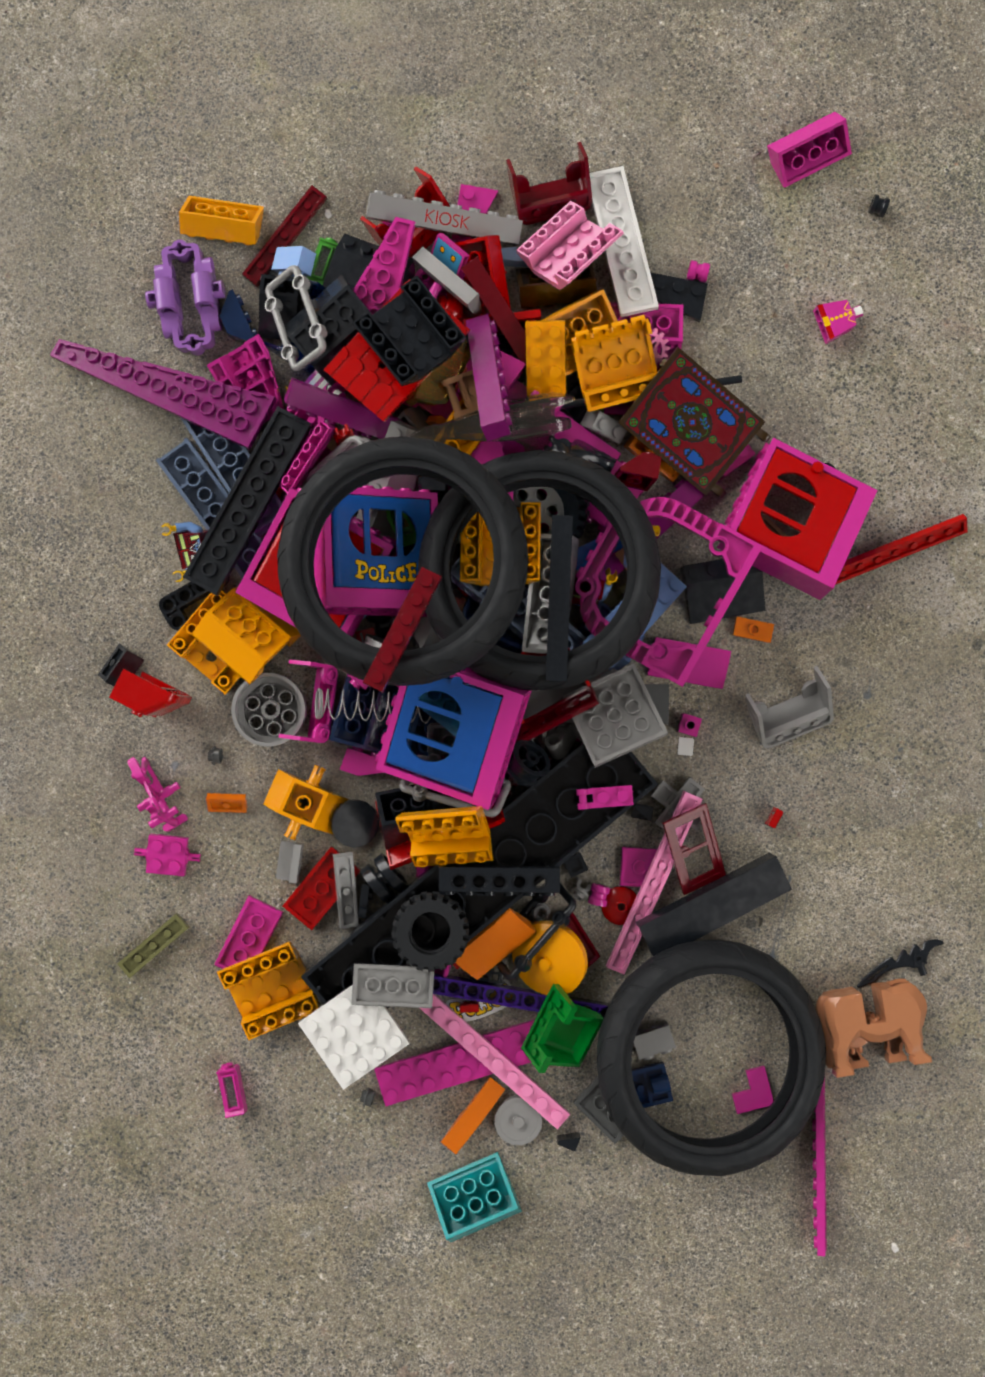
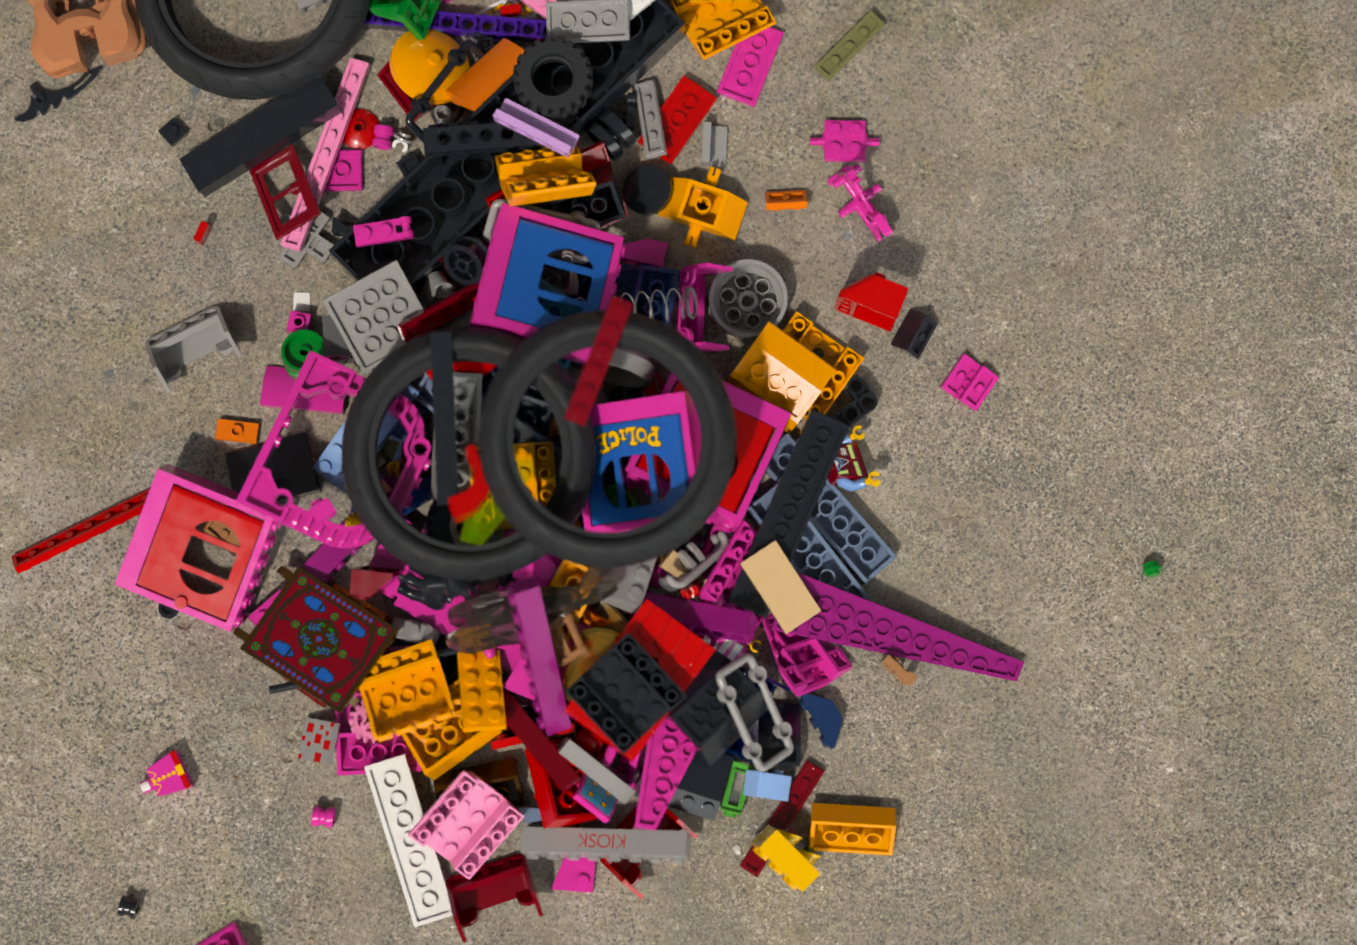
camera: 175 degrees right, 5 degrees down
(74, 618) = (969, 382): none -> dark pink slope
(167, 360) = (893, 665): none -> medium nougat plate
(168, 300) = (901, 734): medium lavender piece -> none
(215, 755) = (803, 249): dark grey plate -> none
(261, 432) = (780, 587): none -> tan tile
(282, 194) = (784, 858): none -> yellow piece
(450, 883) = (536, 127): none -> lavender panel
(532, 495) = (482, 524): none -> clear neon green wing
(532, 518) = (473, 499): none -> red arch
(681, 291) = (342, 791): black wing -> none
(682, 529) = (322, 510): none -> dark pink plate
(691, 702) = (297, 347): none -> green wheel
(698, 337) = (318, 741): none -> light grey tile
(795, 917) = (172, 132): none -> black plate

